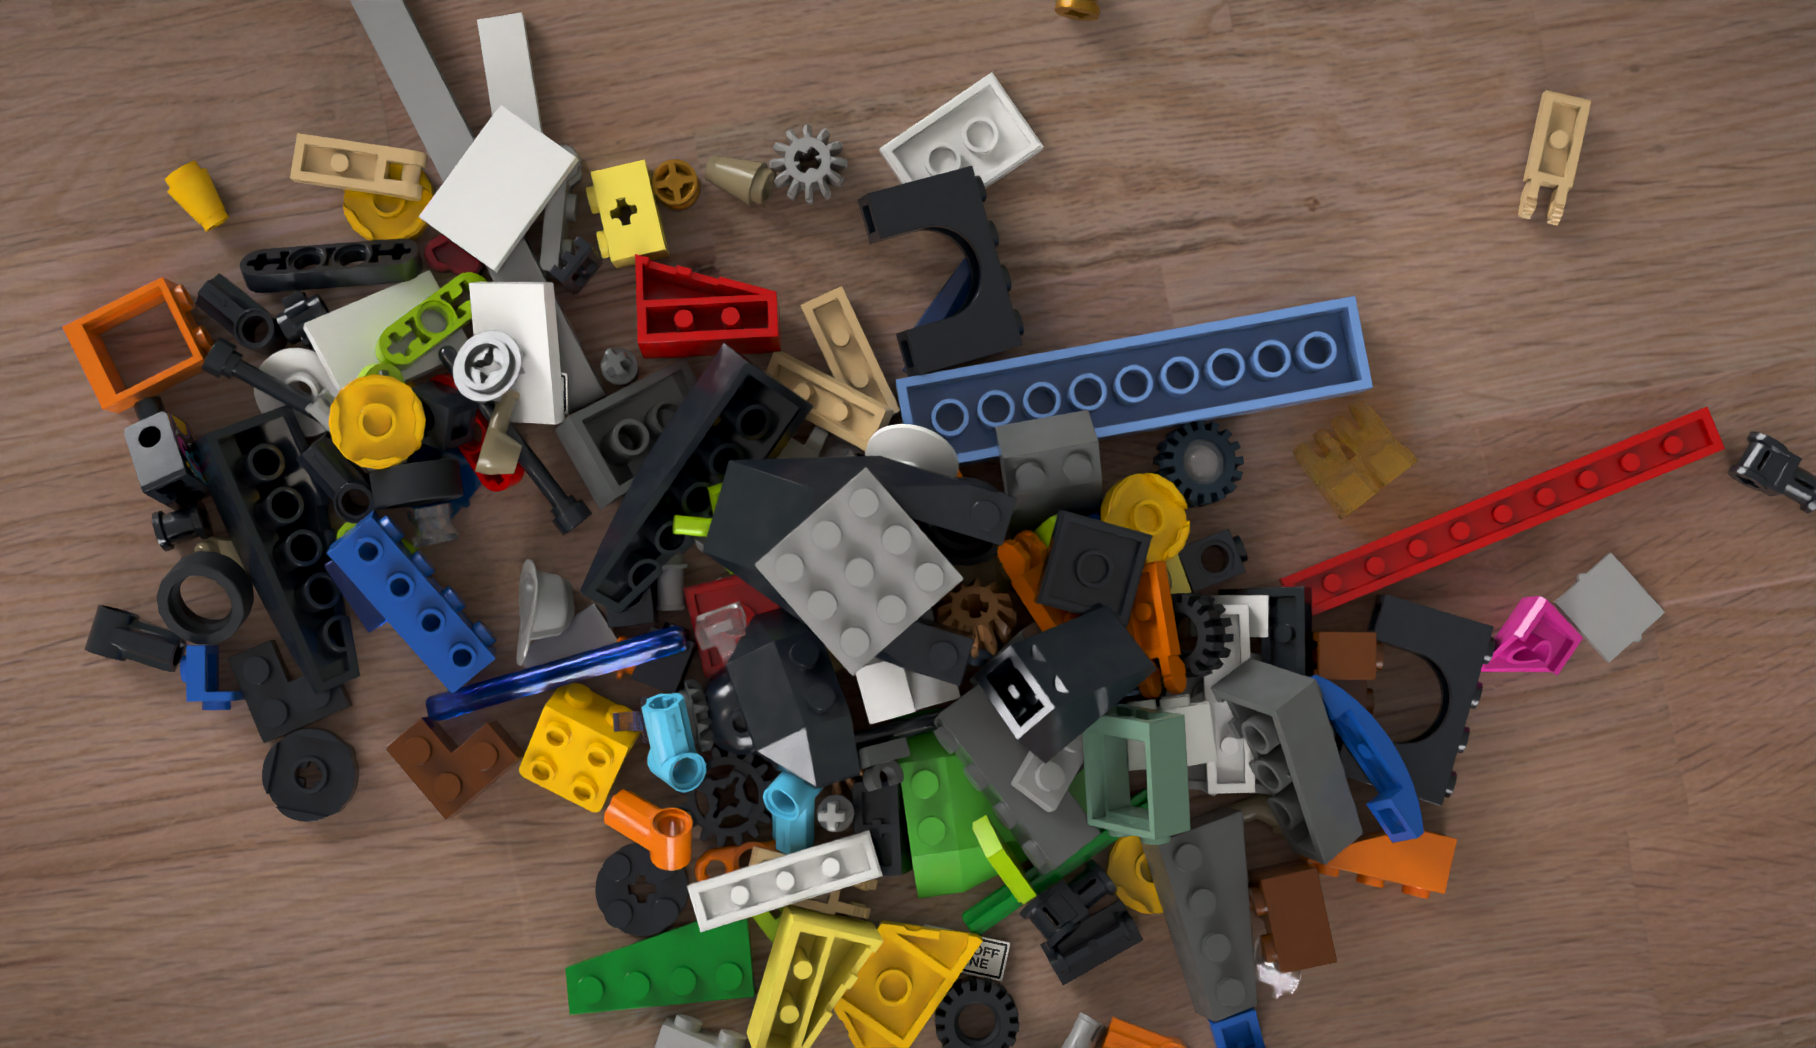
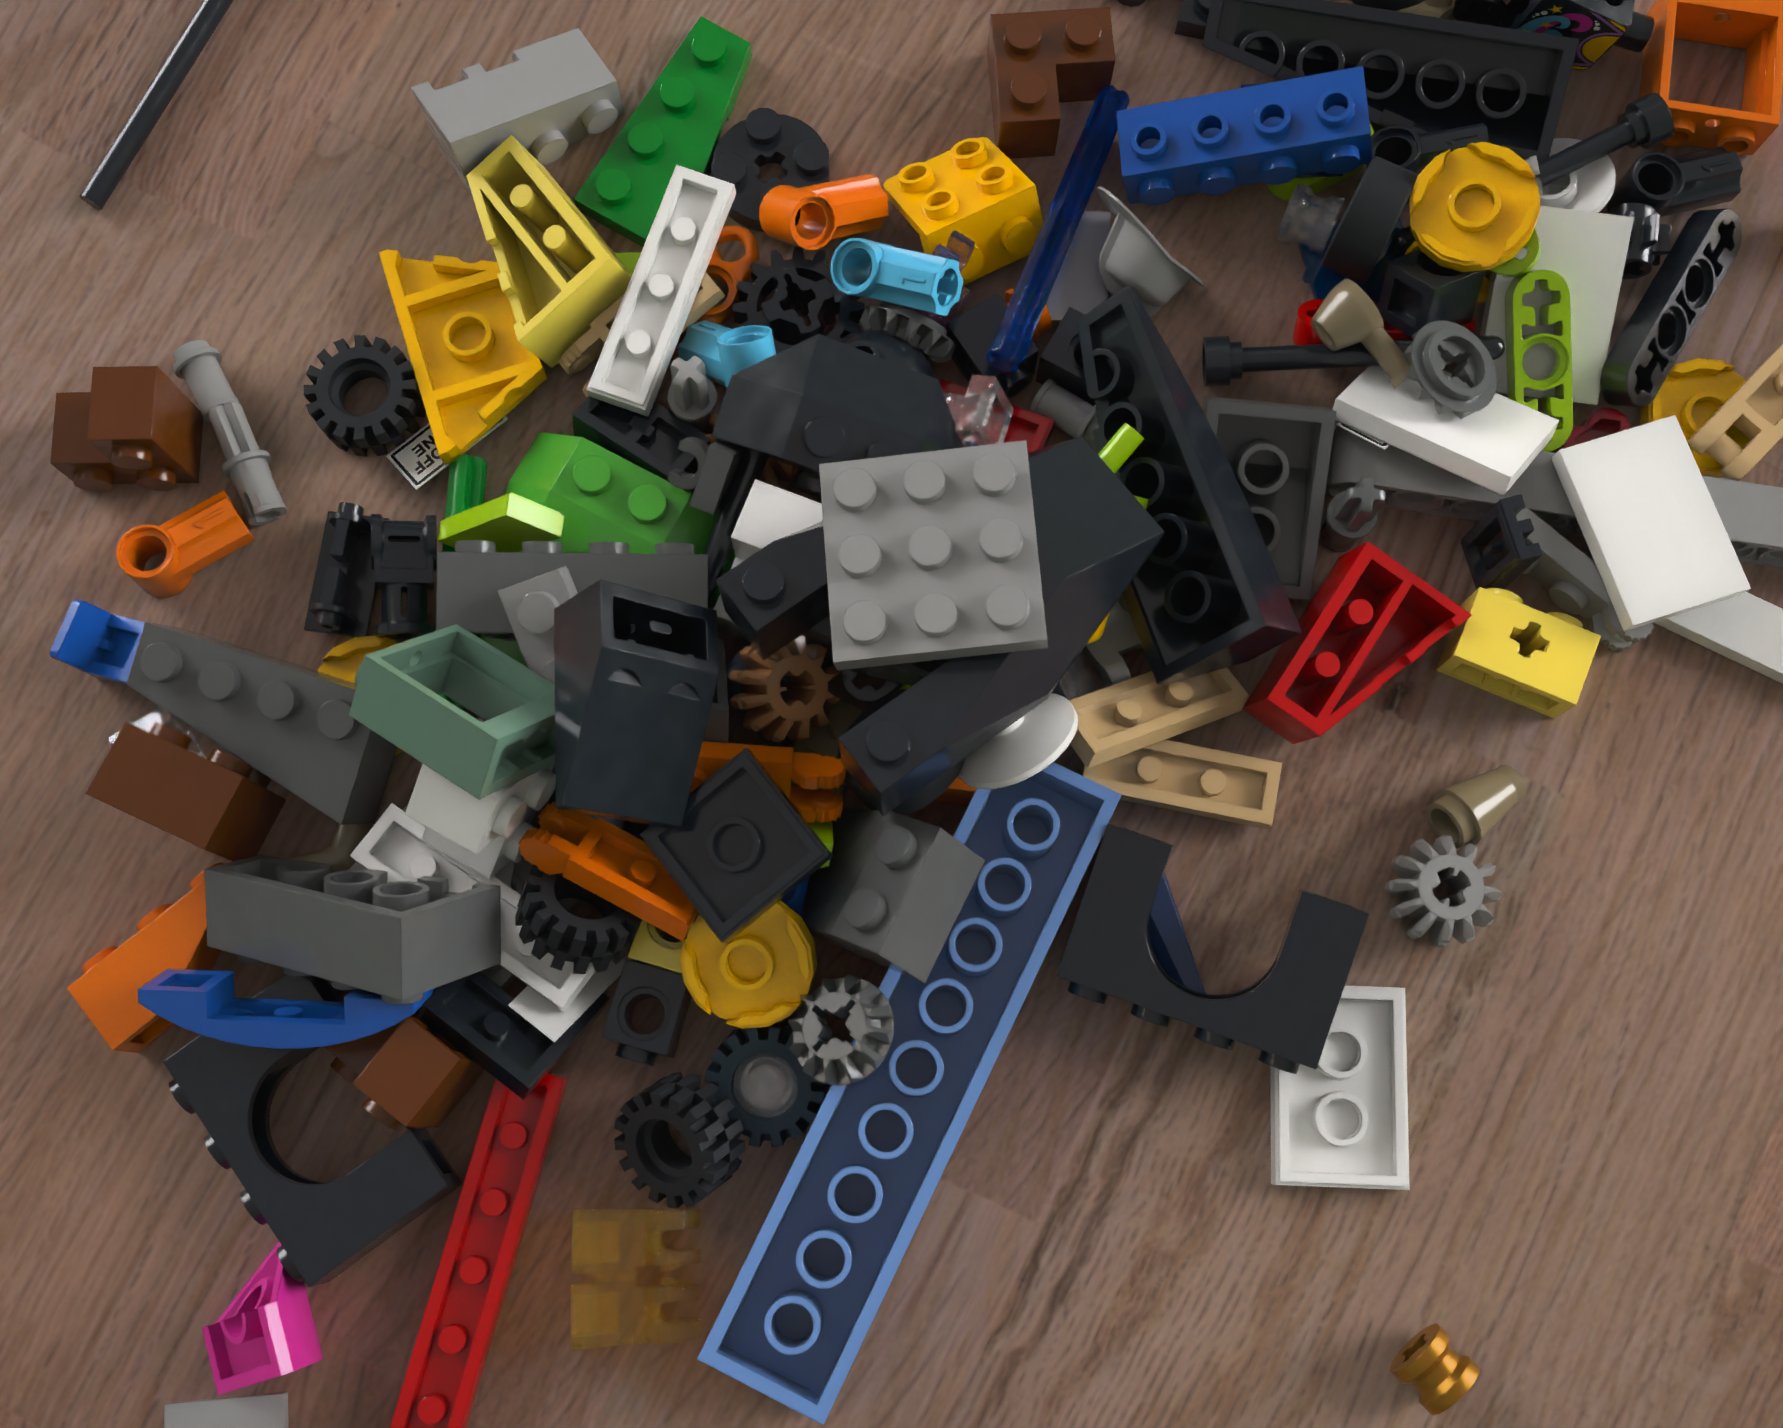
camera: 130 degrees right, 10 degrees down
(674, 175) = (1528, 717): pearl gold wheel -> none
(1132, 424) = (869, 1023): none -> dark grey gear
(1284, 487) = (656, 1155): none -> black tyre

